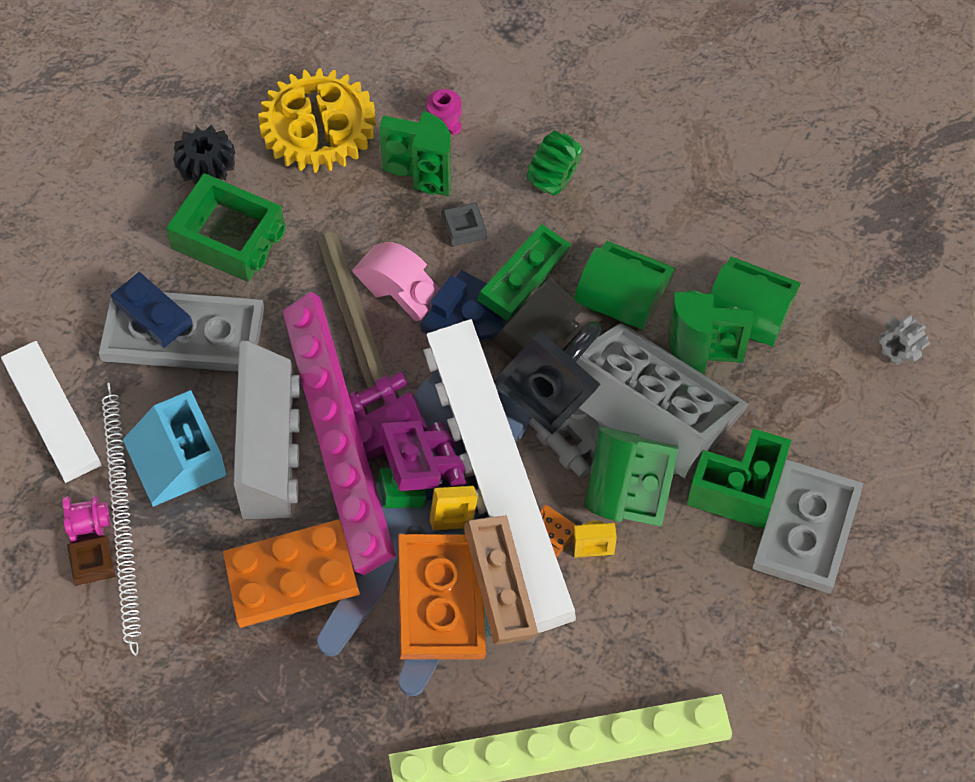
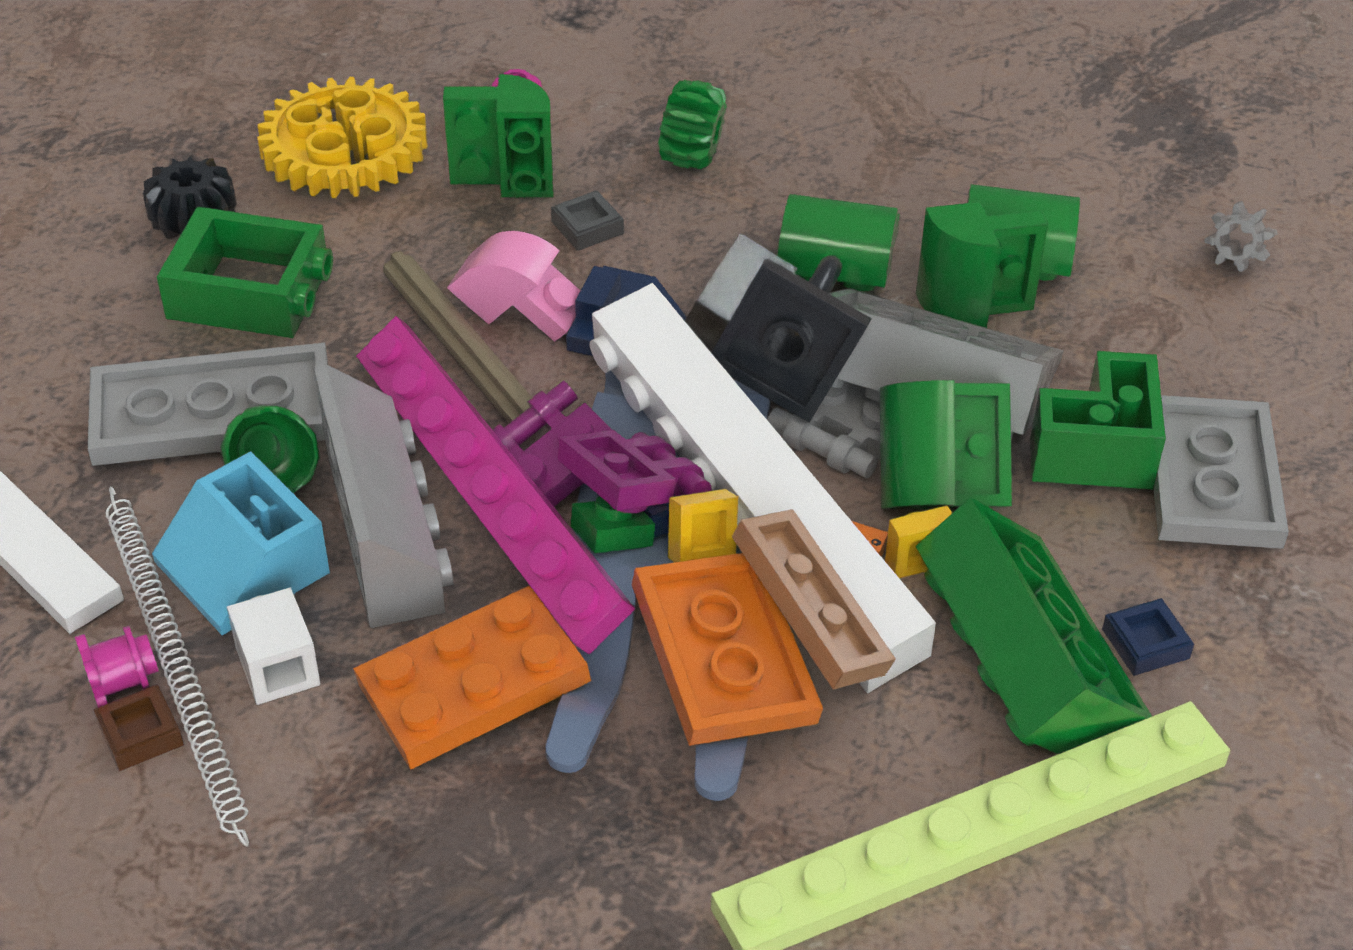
camera: 15 degrees left, 15 degrees down
(151, 309) = (159, 378): dark blue plate -> none
(178, 524) = (274, 645): none -> white brick
(209, 379) = (277, 439): none -> green hair
(524, 272) = (695, 249): green plate -> none
(640, 621) = (1028, 630): none -> green slope
(716, 638) = (1147, 636): none -> dark blue tile

